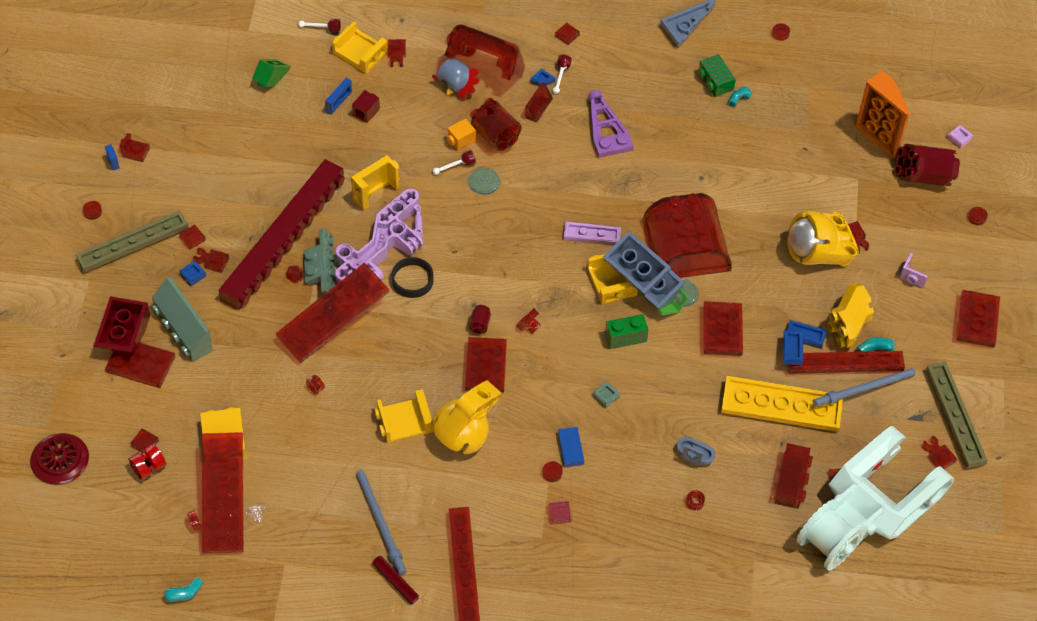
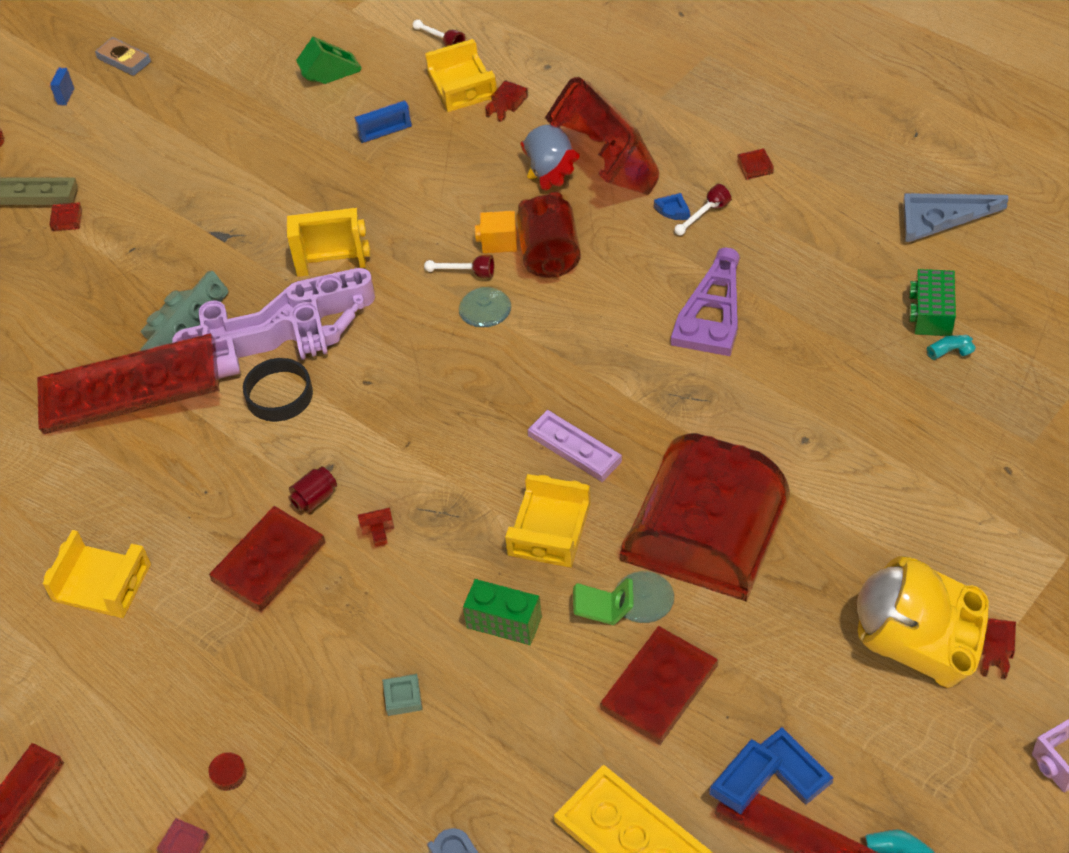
camera: 40 degrees right, 5 degrees down
(129, 121) = (123, 56): none -> tile
(133, 149) = (95, 86): clear red bracket -> none
(192, 273) = (26, 260): blue tile -> none
(213, 261) = (63, 255): clear red plate -> none
(281, 235) = (160, 259): dark red brick -> none
(294, 274) = (137, 315): clear red plate -> none
(315, 384) = (29, 470): clear red bush -> none
(366, 106) = (406, 147): dark red brick -> none
(464, 421) = (150, 619): yellow piece -> none
(538, 103) = (638, 234): clear red slope -> none
(571, 446) = (284, 747): blue tile -> none
(644, 270) = (586, 532): sand blue slope -> none
(850, 315) = (882, 773): yellow brick -> none

